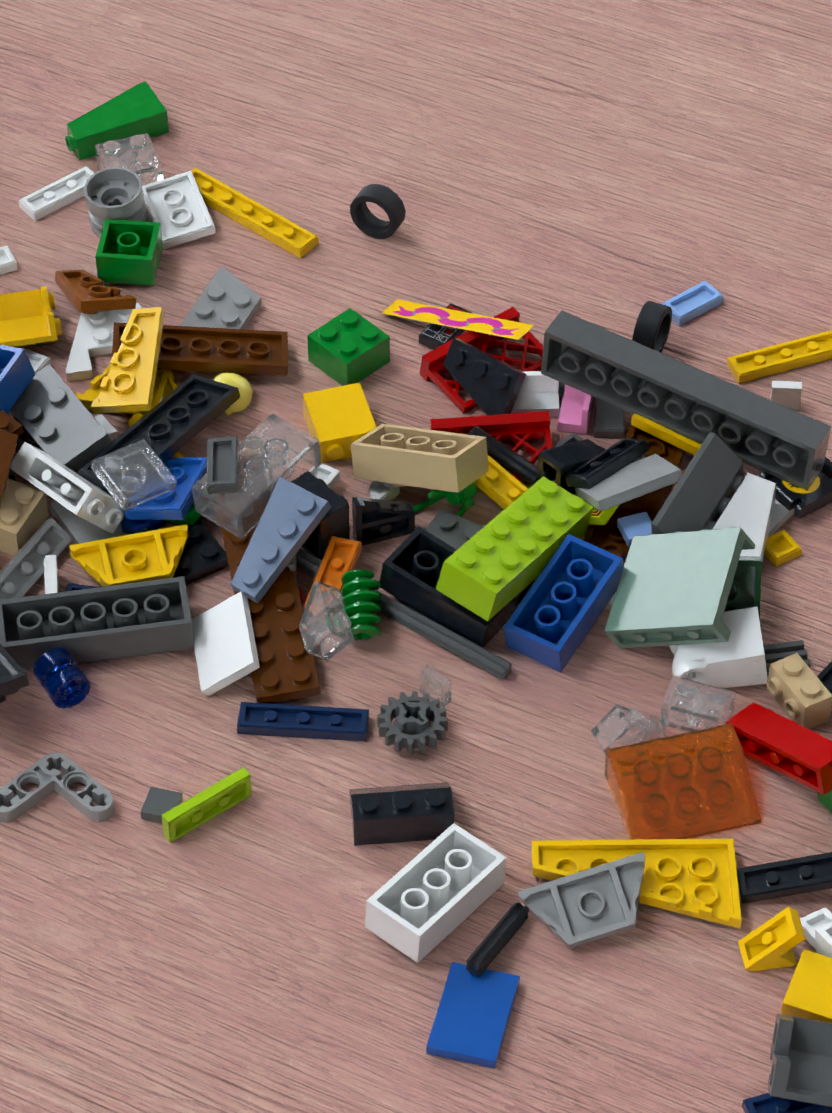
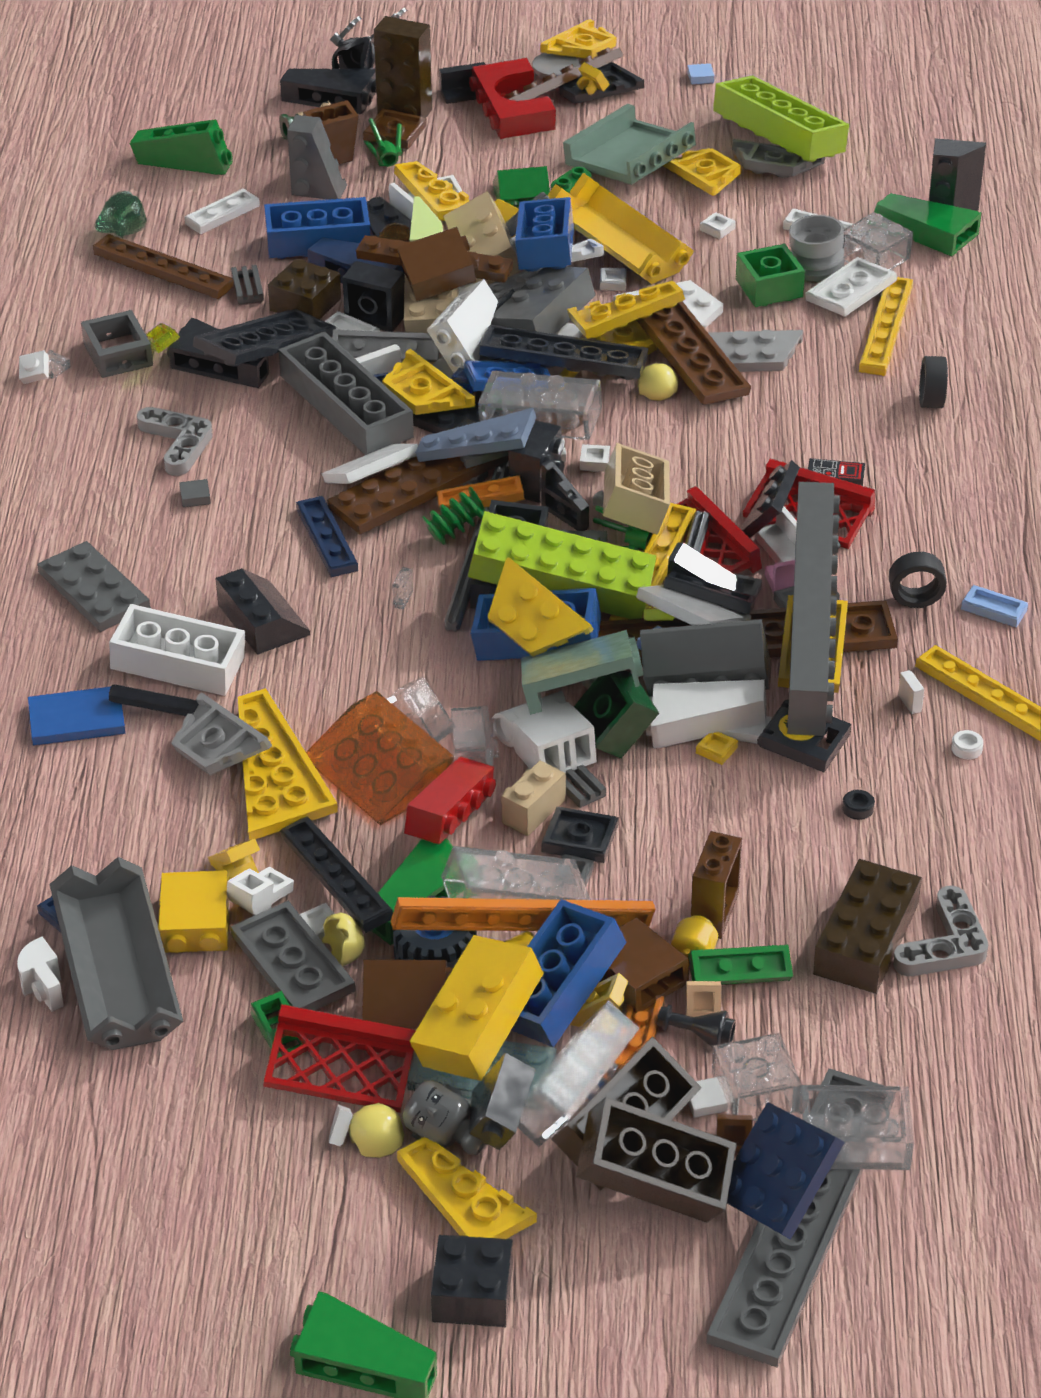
camera: 65 degrees right, 5 degrees down
(61, 678) = (283, 398): clear blue wheel -> none
(89, 71) = (957, 173): none -> black slope
(89, 293) = (706, 272): dark orange wing -> none
(134, 474) = (491, 343): clear plate -> none
(206, 805) = (203, 510): lime tile -> none
(222, 465) = (519, 372): dark grey tile -> none
(265, 939) = (92, 585): none -> dark grey plate
(324, 622) = (421, 499): clear slope -> none
(337, 419) = (673, 440): yellow brick -> none
(348, 348) = (756, 423): green brick -> none
(412, 722) = (355, 588): dark grey gear -> none
(458, 319) = (837, 464): yellow sticker -> none
(582, 589) = (532, 612): none -> yellow wing

